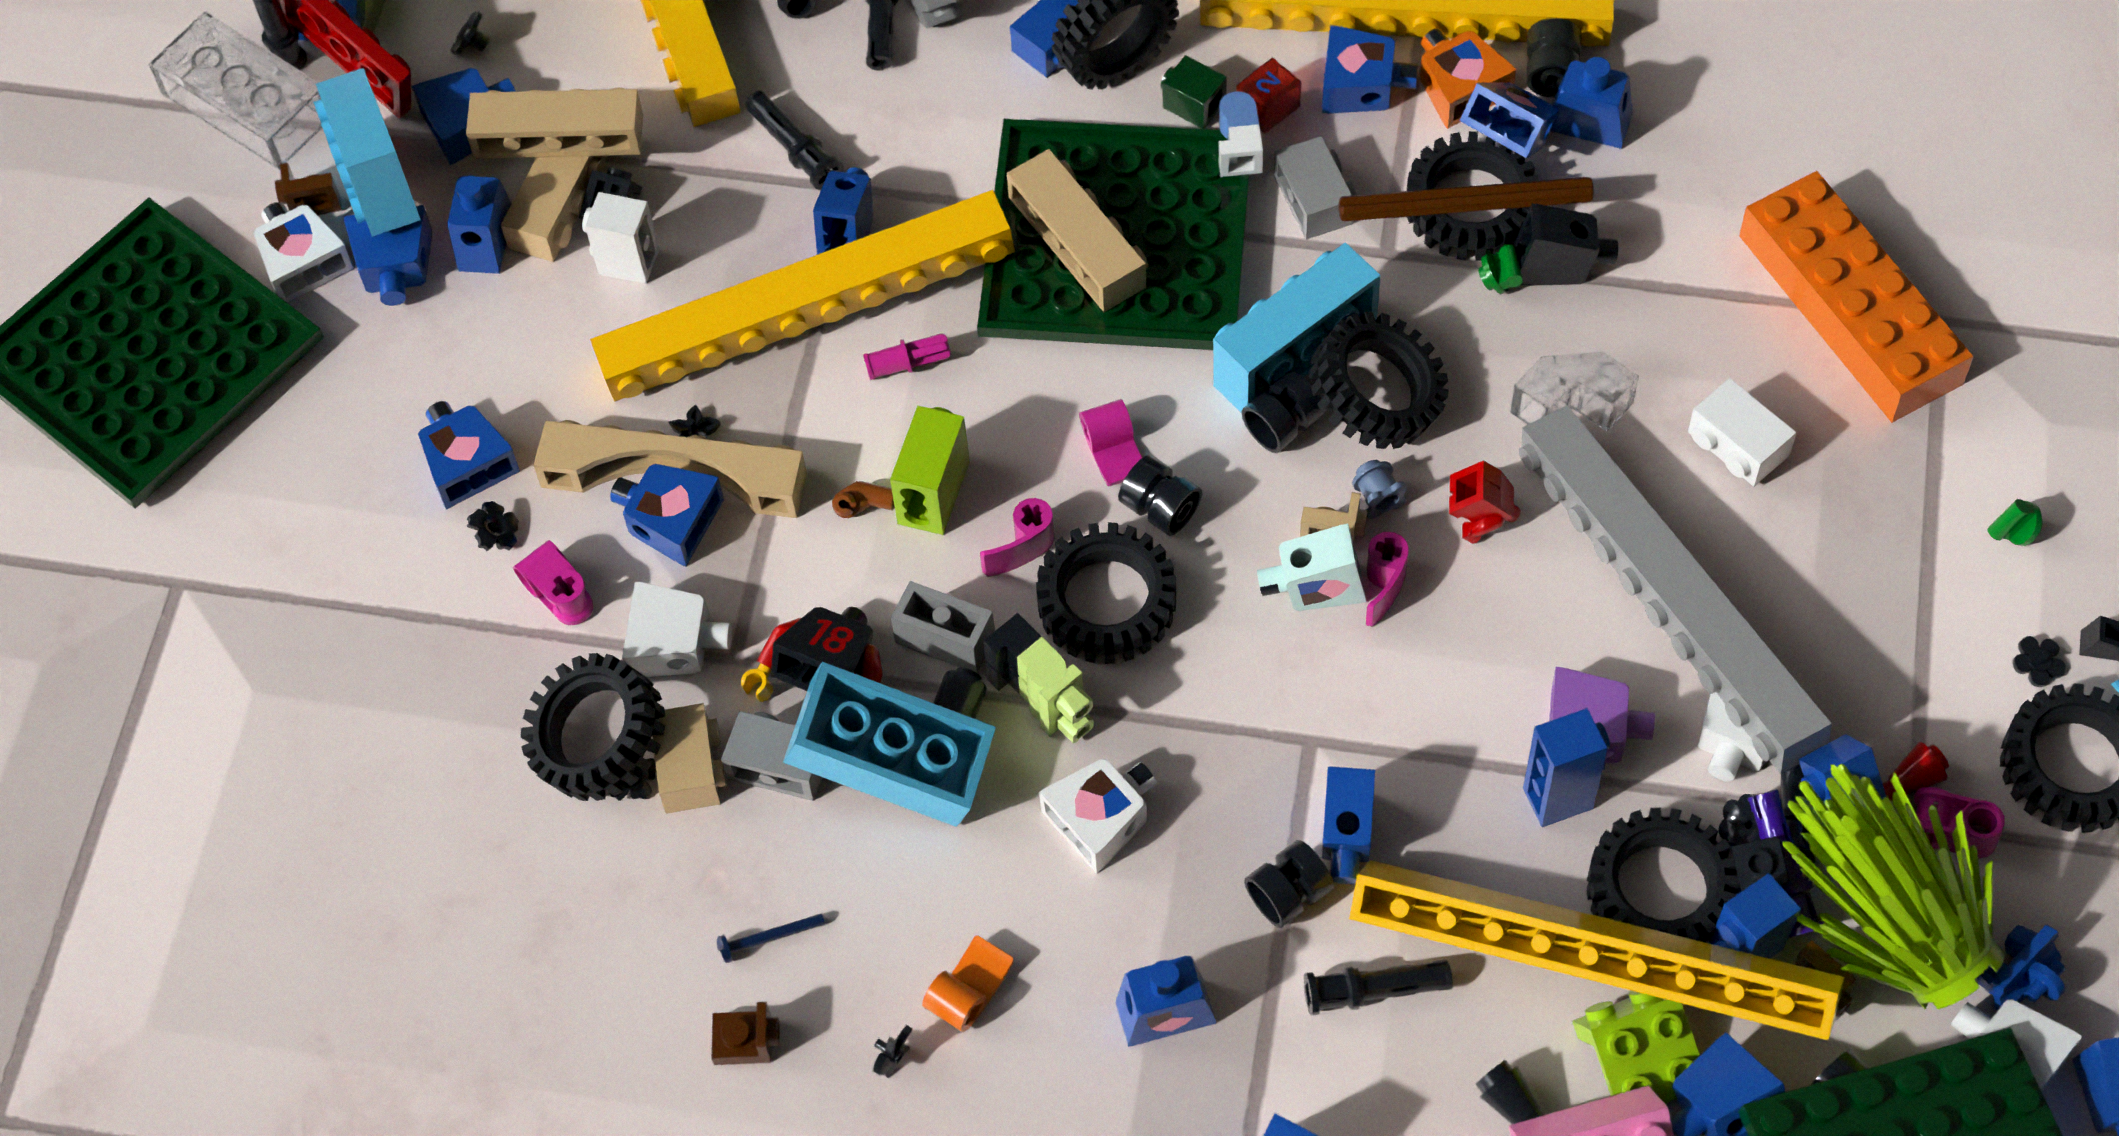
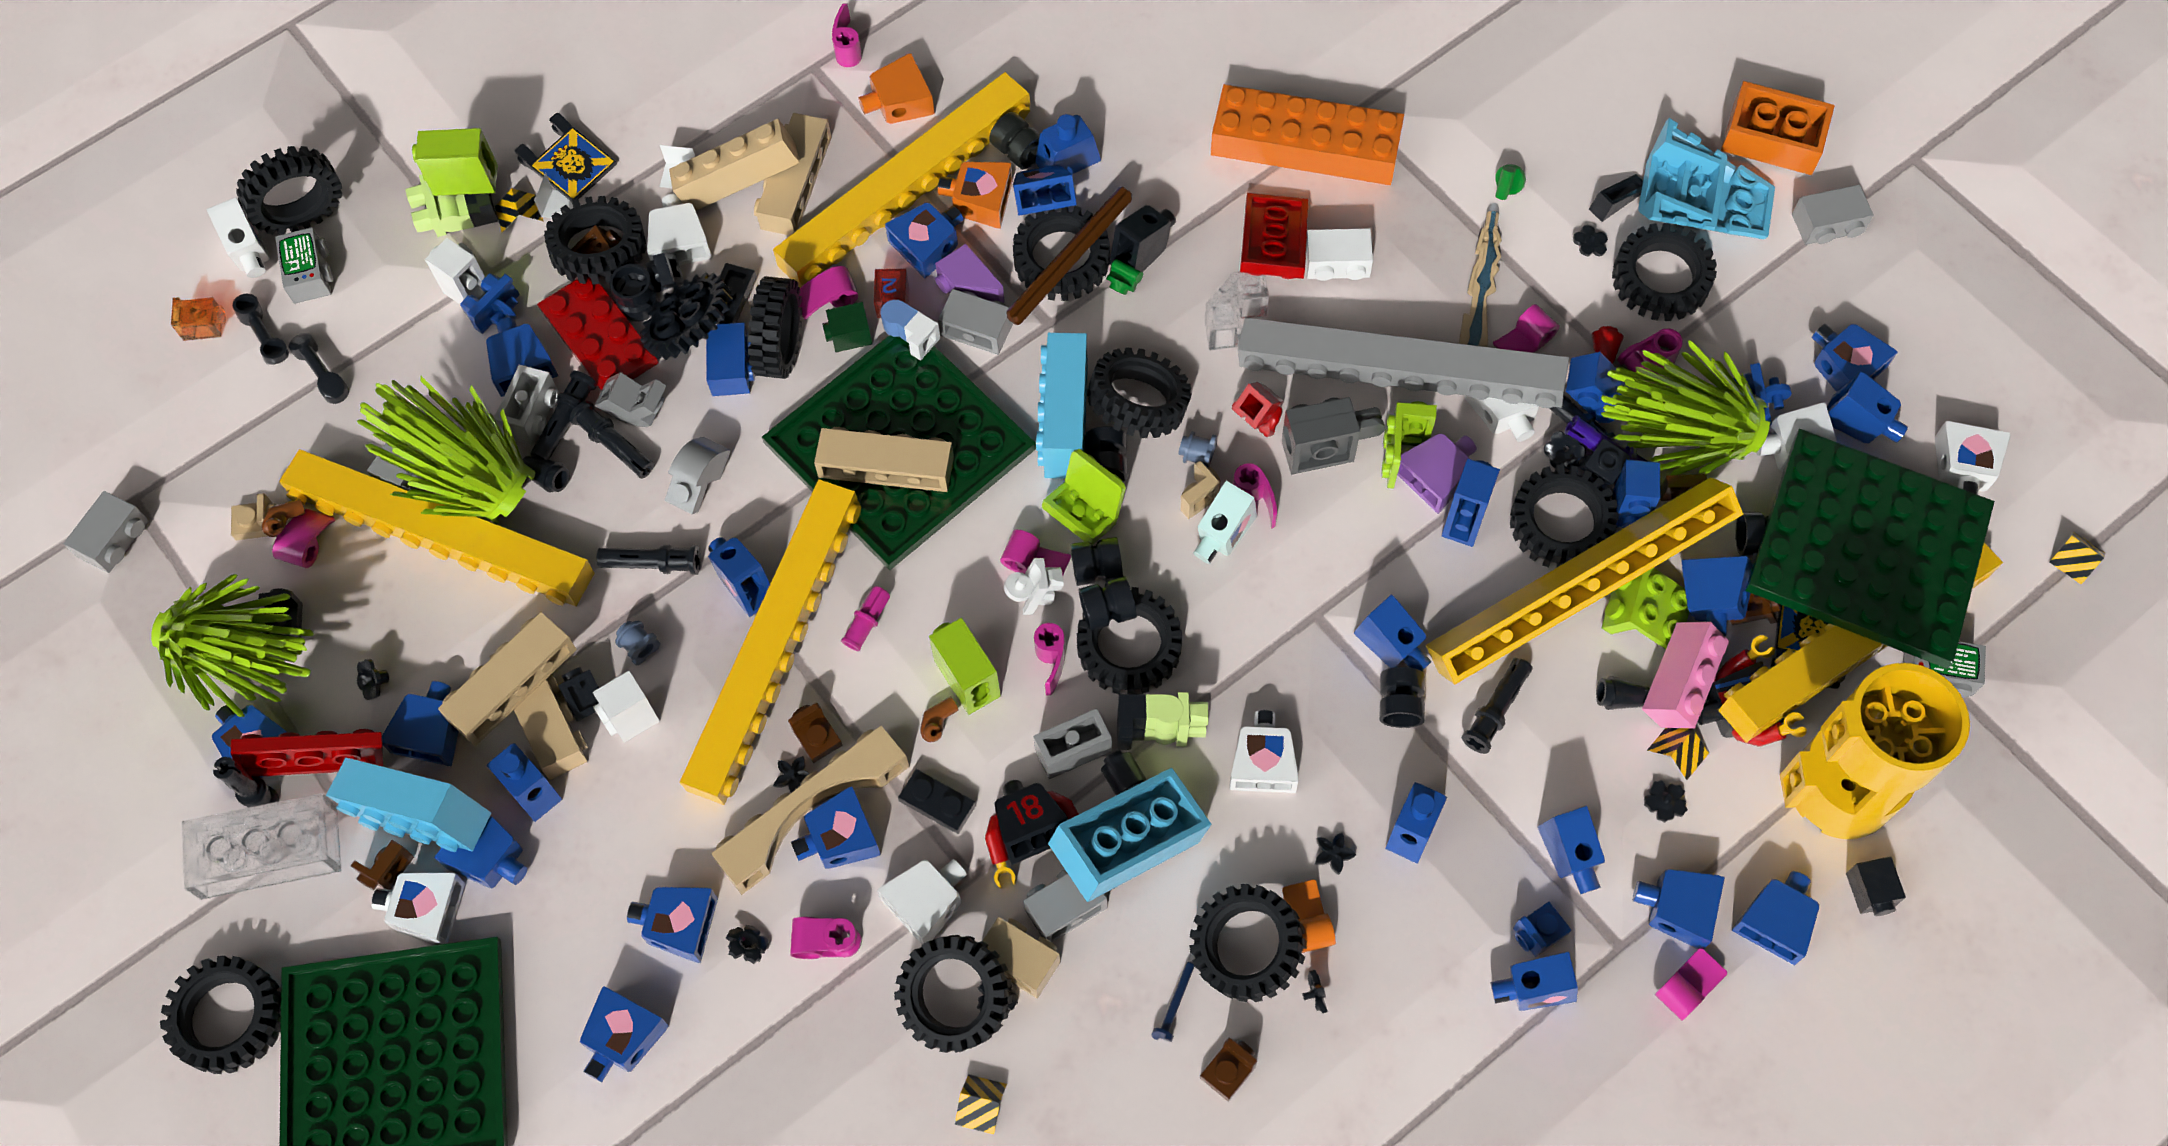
camera: 50 degrees left, 5 degrees up
(51, 161) = (191, 990): none -> black tyre
(316, 496) = (619, 1034): none -> blue torso
(512, 840) = (979, 1104): none -> sticker
(699, 197) = (636, 641): none -> sand blue brick
(751, 409) = (814, 732): none -> reddish brown bracket
(781, 567) = (937, 801): none -> black plate
(902, 980) = (1284, 962): none -> black tyre
(913, 91) = (692, 469): none -> light grey brick
(1063, 956) = (1334, 852): none -> black plant
(1077, 465) = (1035, 586): none -> white hips
(1106, 528) = (1107, 603): none -> black wheel
(1213, 432) = (1087, 499): none -> lime bracket
(1221, 42) = (830, 286): none -> dark pink panel
(1355, 136) = (966, 272): none -> medium lavender slope
(1512, 580) = (1326, 433): none -> dark grey brick
(1588, 639) = (1408, 426): none -> lime bracket
(1690, 355) = (1274, 236): none -> red plate
(1858, 690) = (1531, 332): none -> dark pink panel
(1865, 597) = (1481, 285): none -> tan sword

